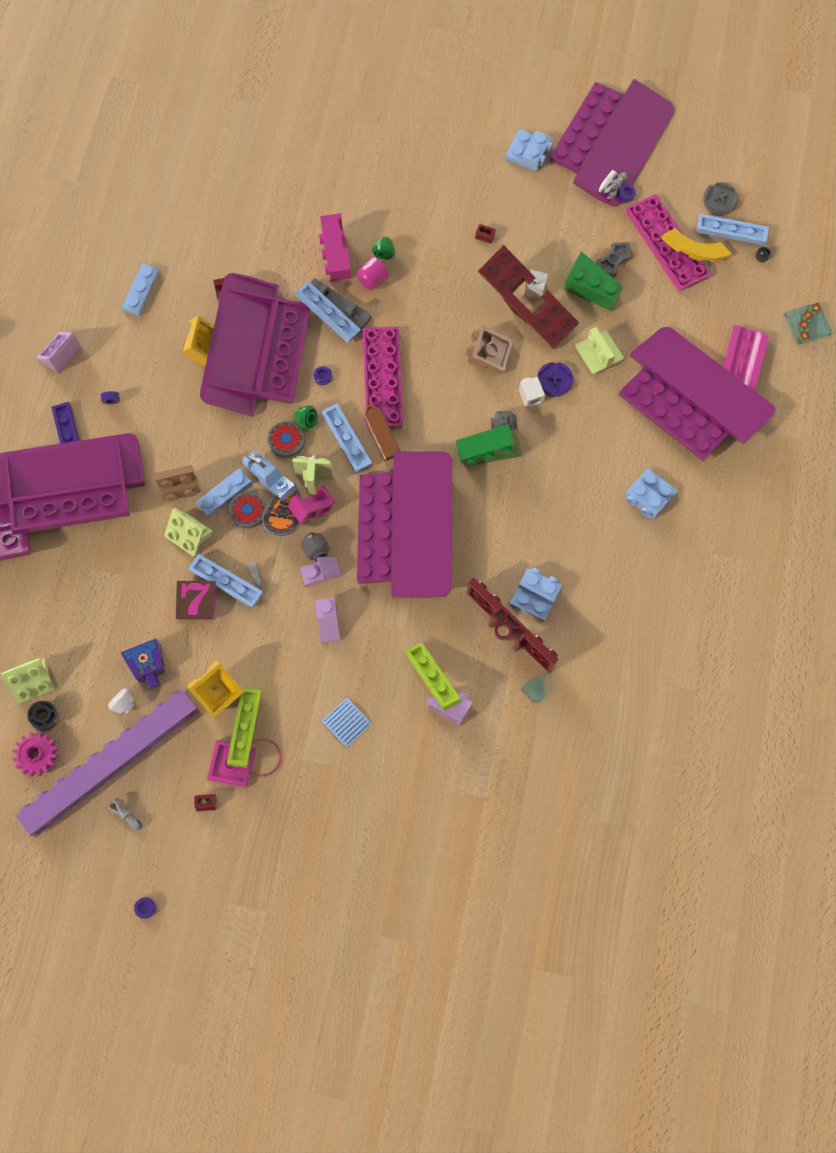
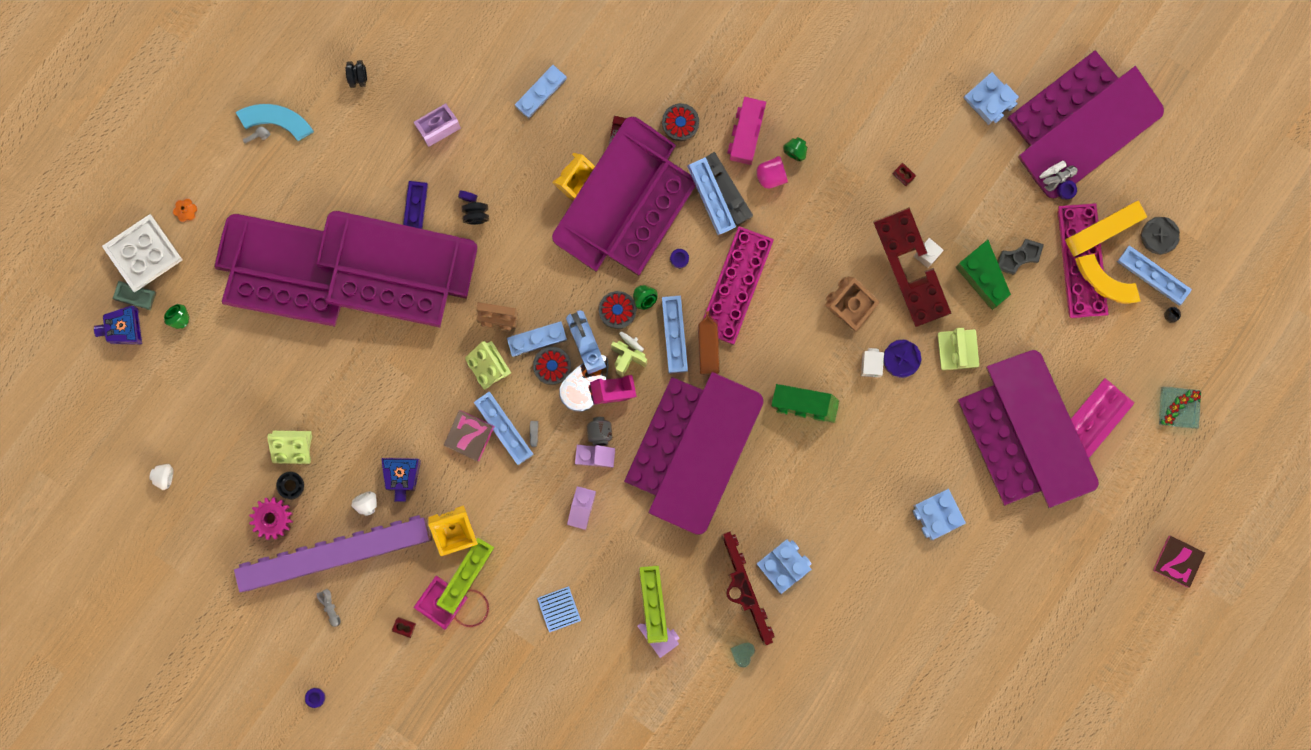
camera: 20 degrees right, 10 degrees up
(122, 407) = (475, 213): none -> black wheel
(274, 266) = (680, 122): none -> tile
(503, 418) = (832, 383): dark grey head -> none
(674, 206) = (1105, 228): none -> yellow beam

